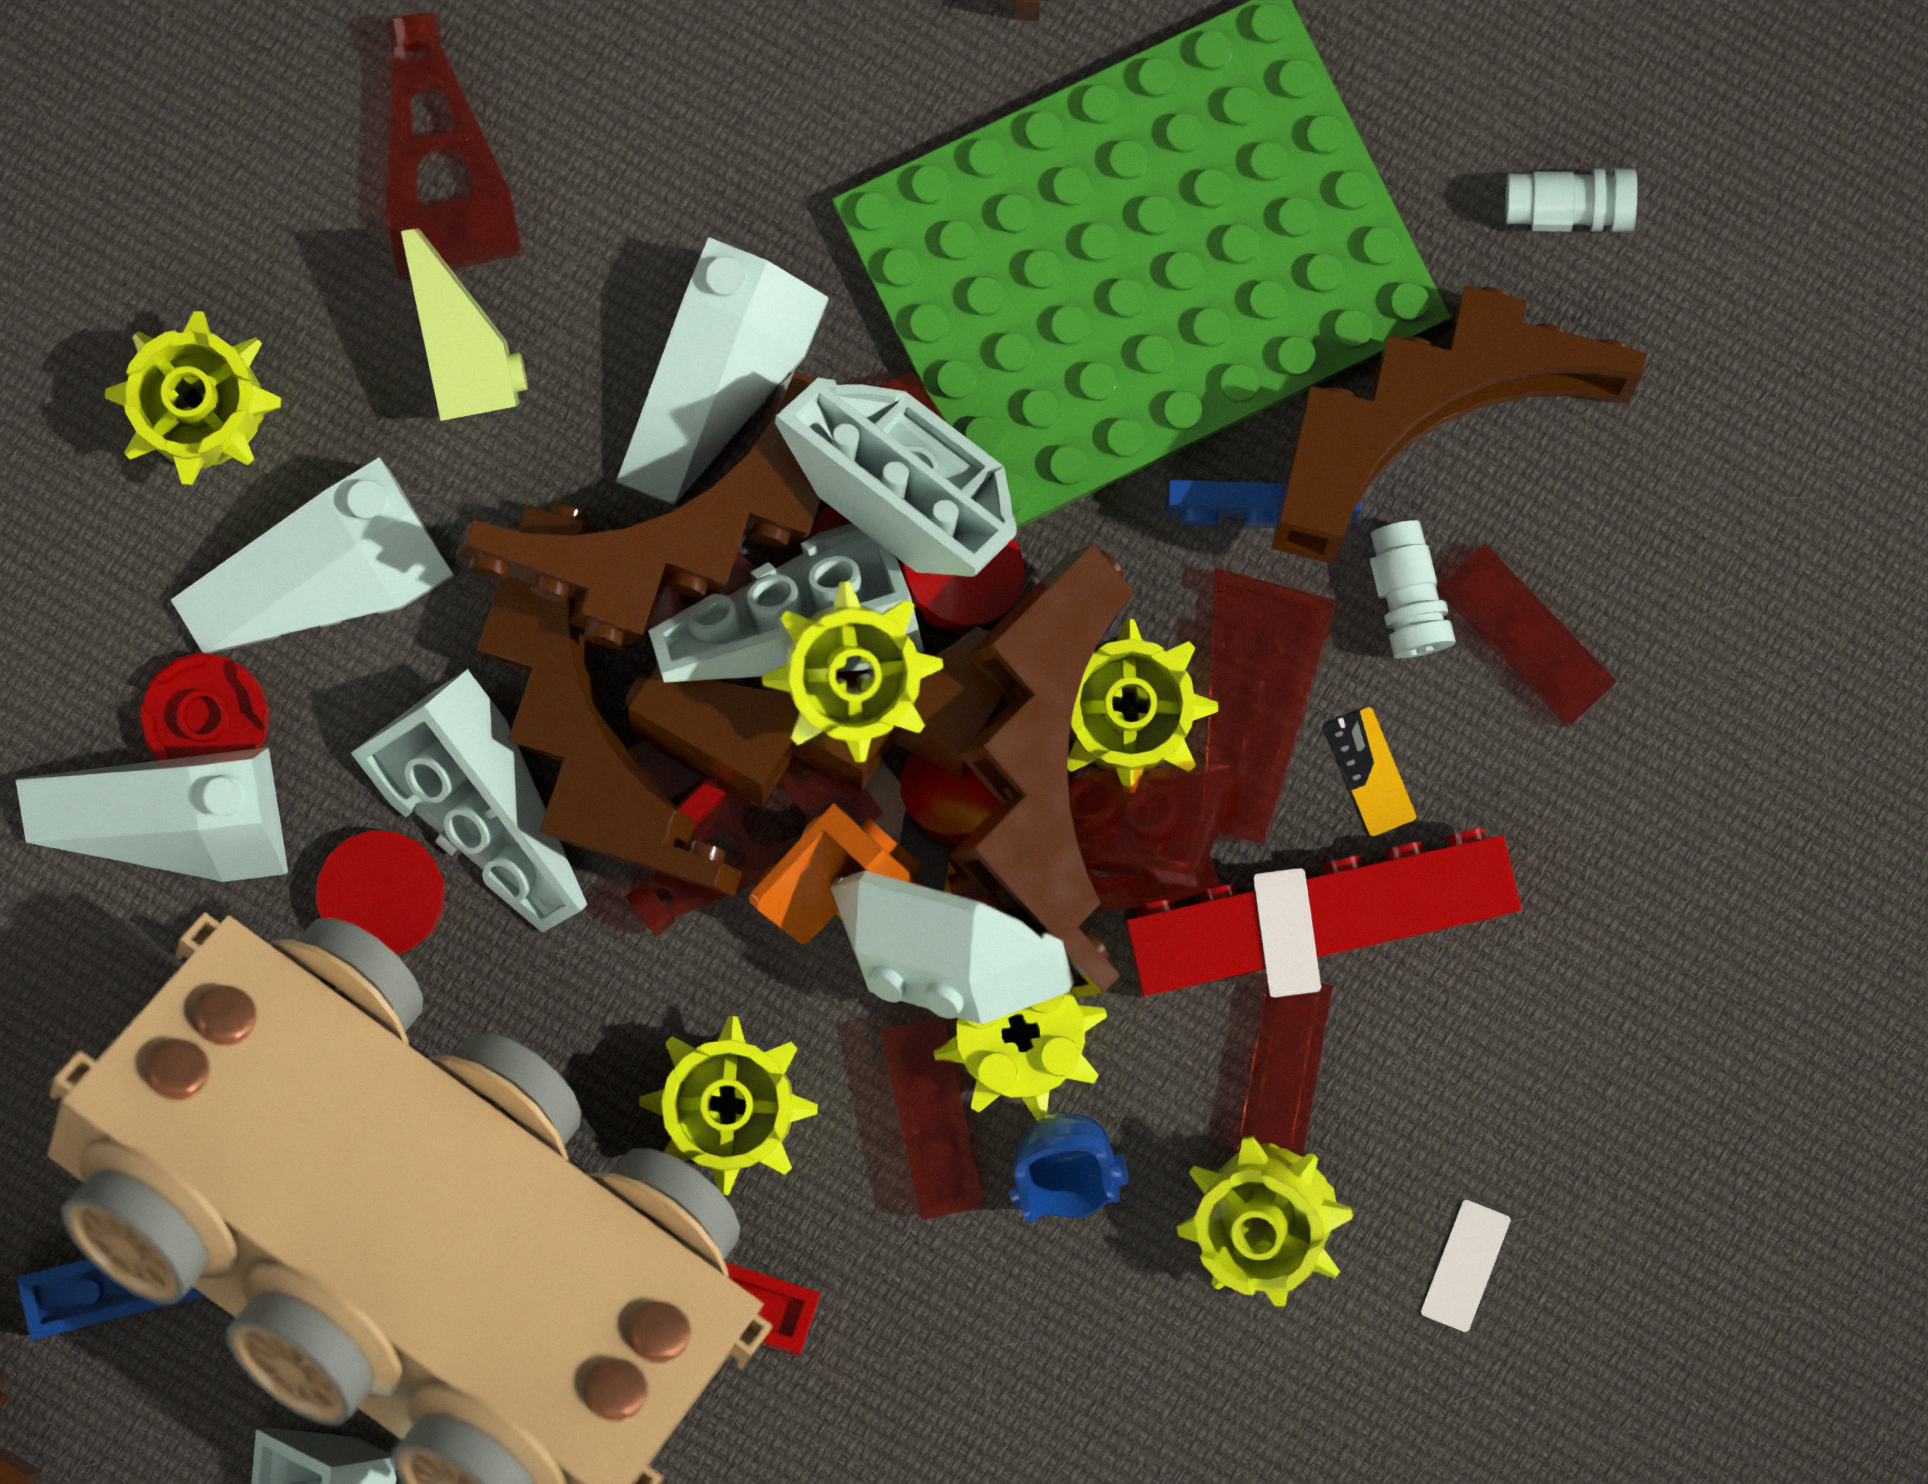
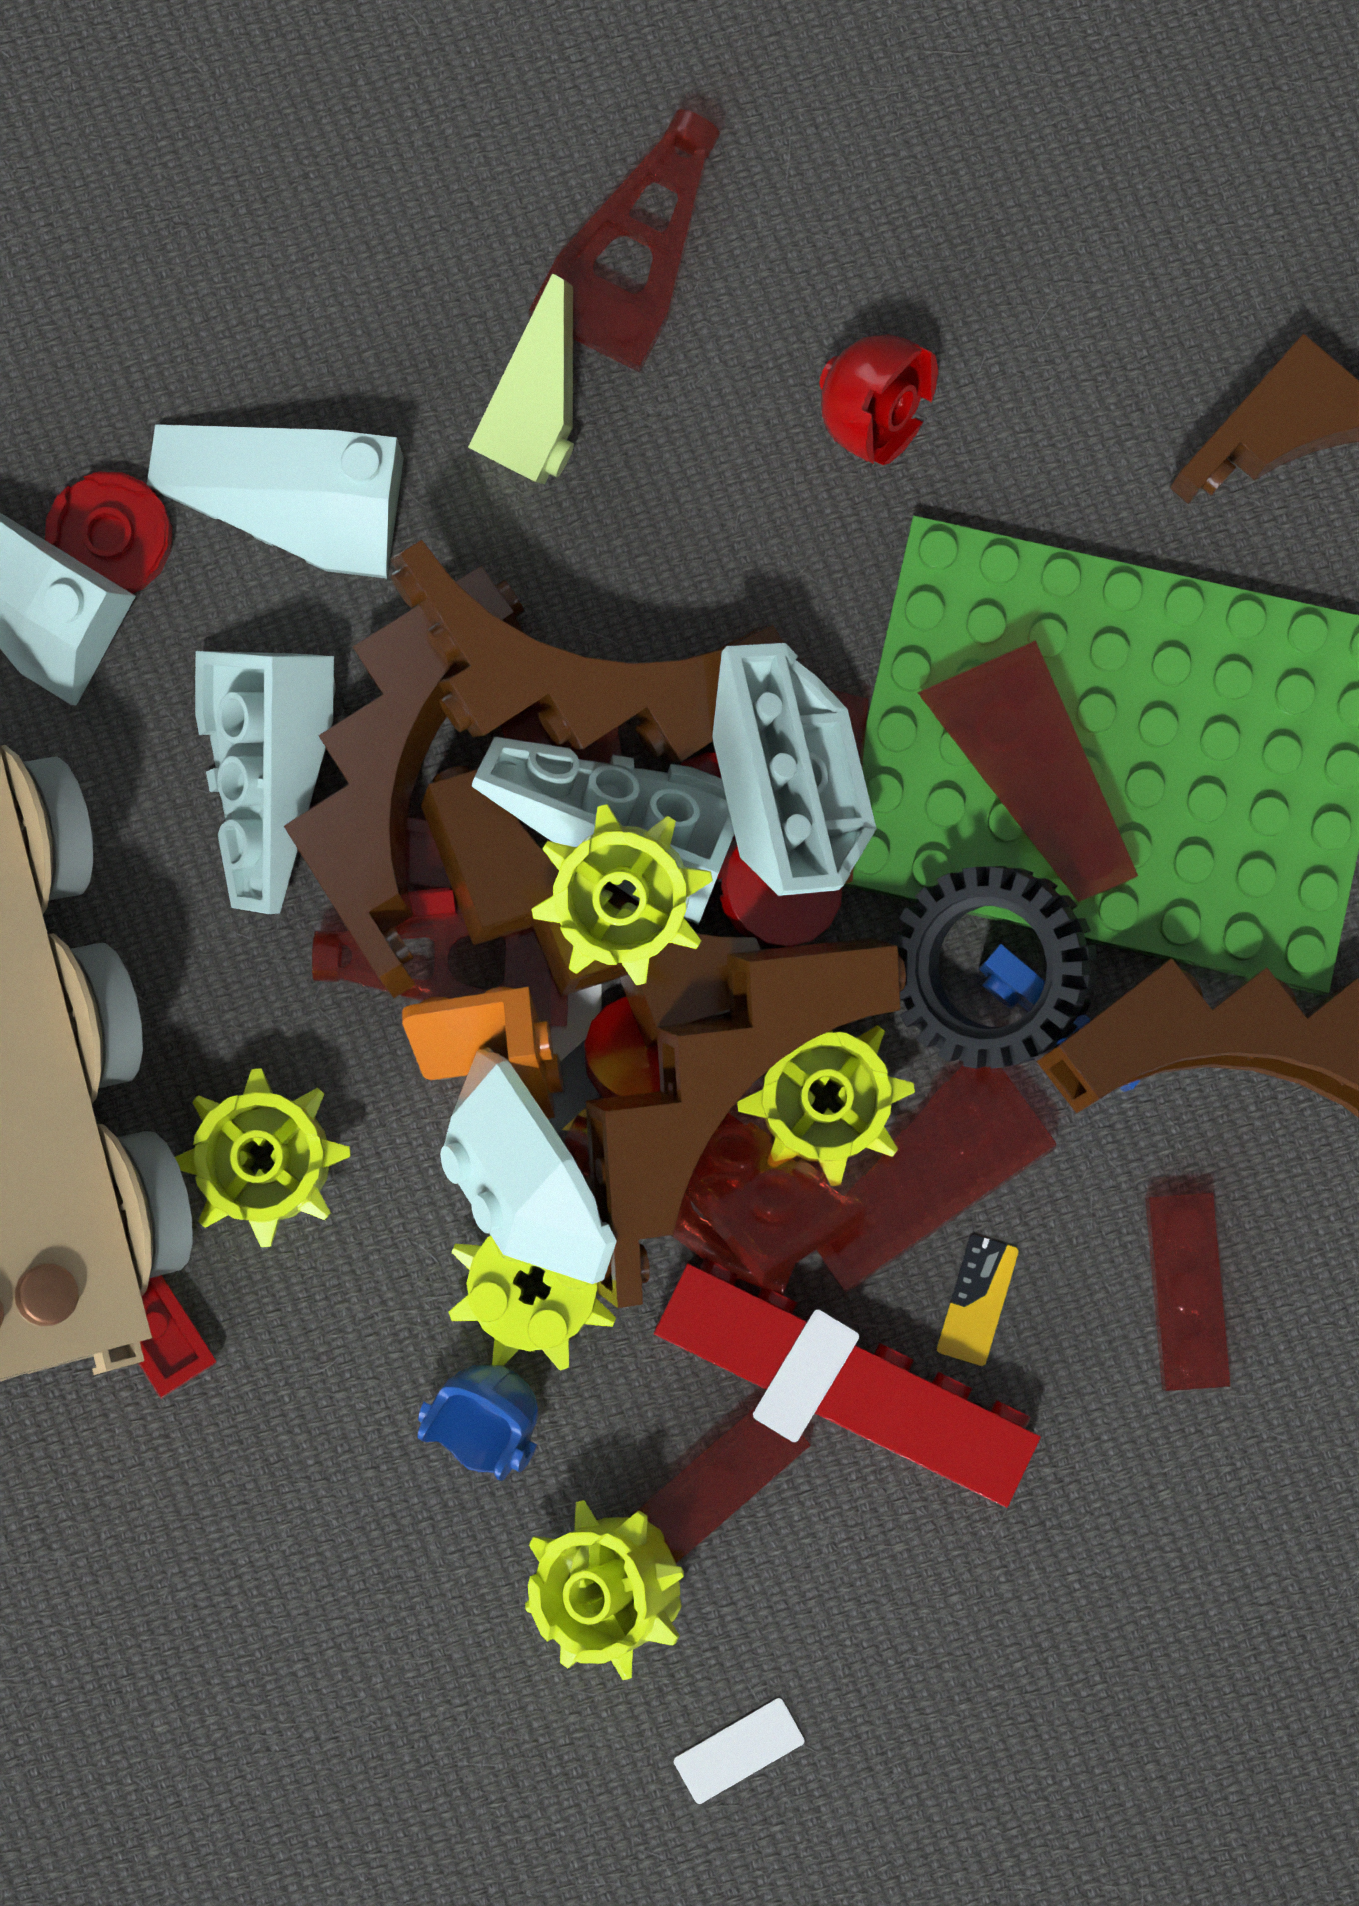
camera: 40 degrees right, 0 degrees up
(162, 377) = (284, 246): neon yellow brick -> none
(383, 887) = (133, 777): red tile -> none
(725, 355) = (731, 571): light aqua wedge -> none
(726, 129) = (875, 393): none -> red cylinder
(932, 1119) = (411, 1297): clear red plate -> none
(1073, 315) = (1029, 755): none -> clear red wing
(1223, 443) = (1065, 952): none -> black tyre
(1408, 582) = (1125, 1176): light aqua axle -> none

